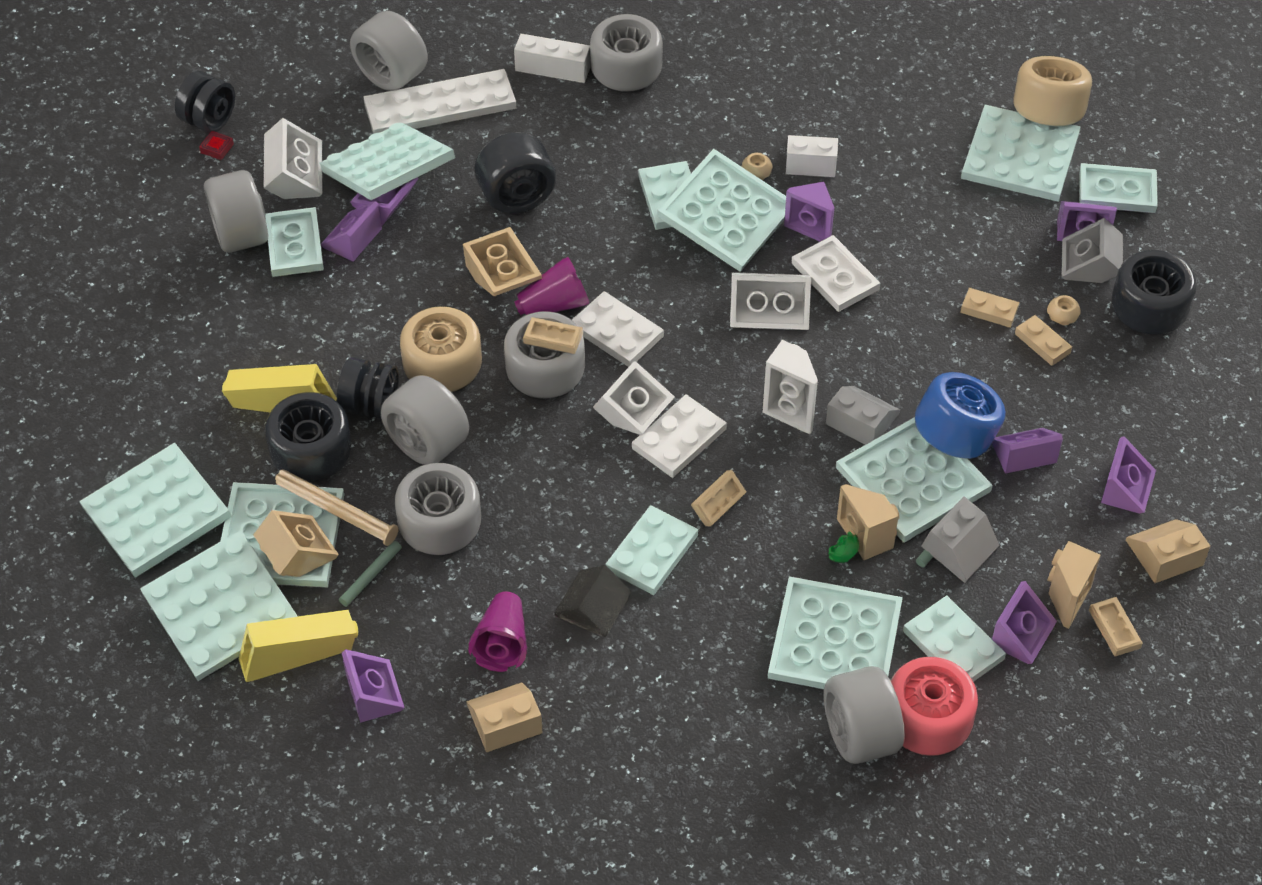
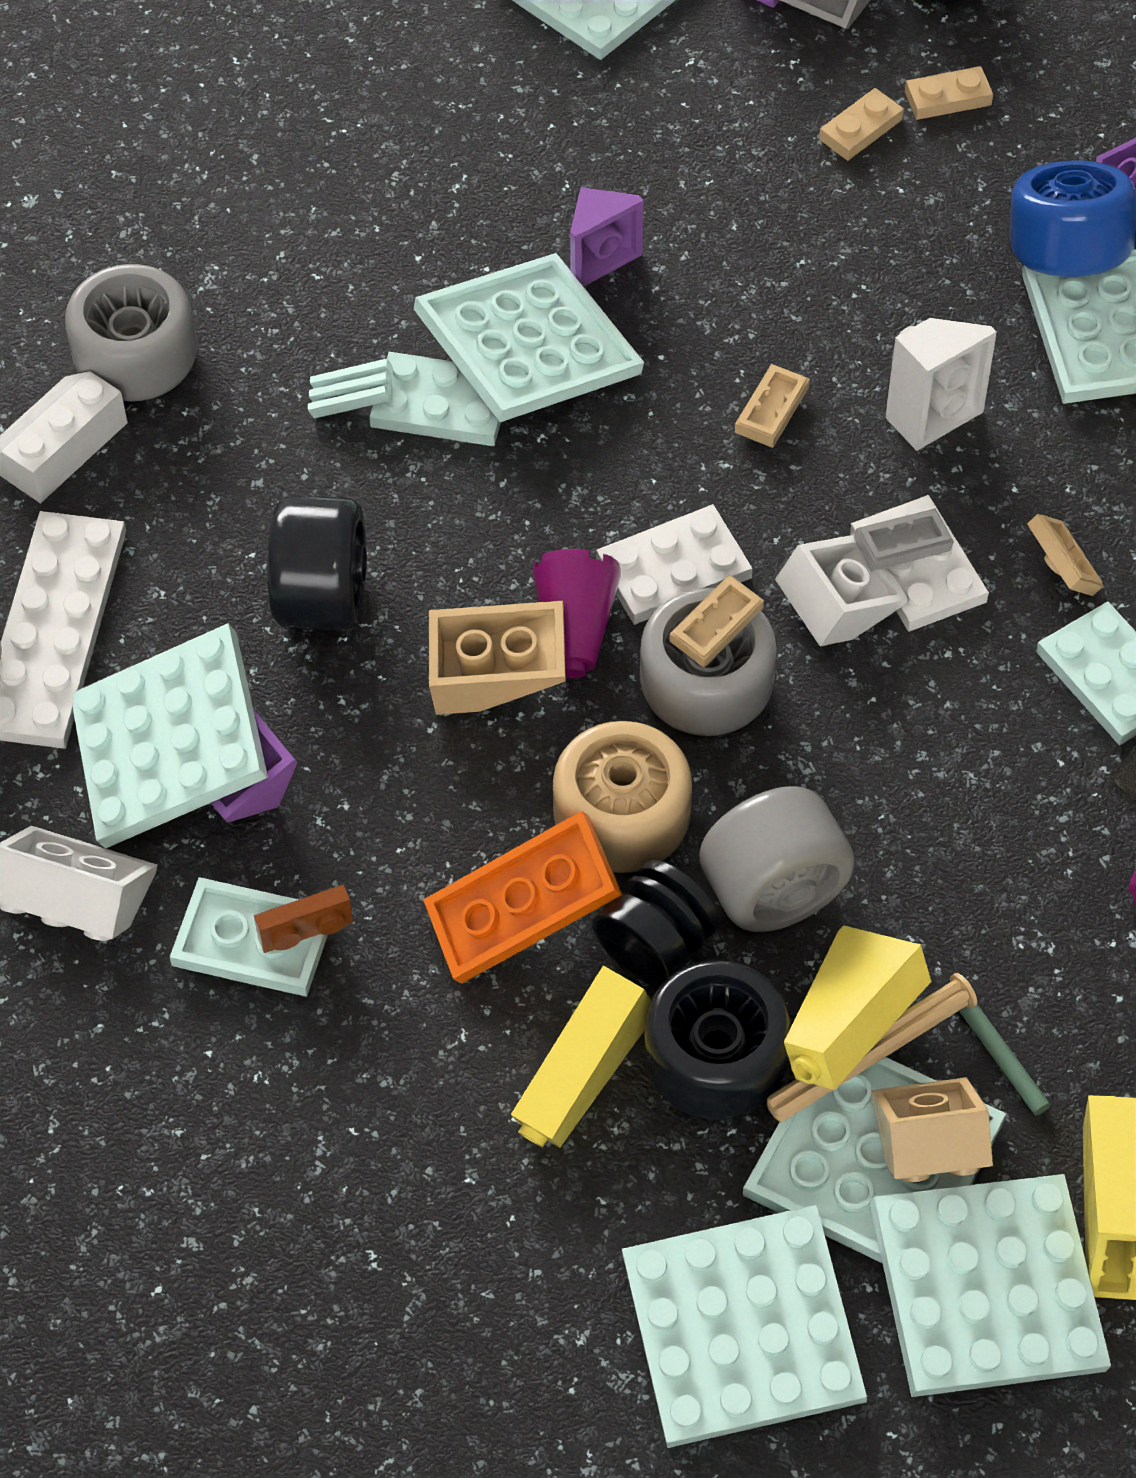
camera: 65 degrees left, 5 degrees up
(236, 211) = (172, 985): light grey wheel -> none
(303, 249) = (304, 918): none -> dark orange plate
(348, 482) = (853, 1003): none -> light yellow slope
(354, 231) = (278, 841): medium lavender slope -> none
(356, 328) = (522, 897): none -> orange plate
(438, 508) = (951, 898): light grey wheel -> none
(654, 152) = (350, 382): none -> light aqua tile
(676, 413) = (903, 539): none -> light grey plate
(749, 333) = (772, 405): none -> tan plate
(758, 165) = (445, 270): tan plate -> none
(770, 301) = (725, 353): white slope -> none
(811, 156) = (465, 197): white slope -> none
(836, 273) = (713, 262): white plate -> none
(860, 414) = (1017, 325): light grey slope -> none
(1063, 310) = (908, 49): tan plate -> none

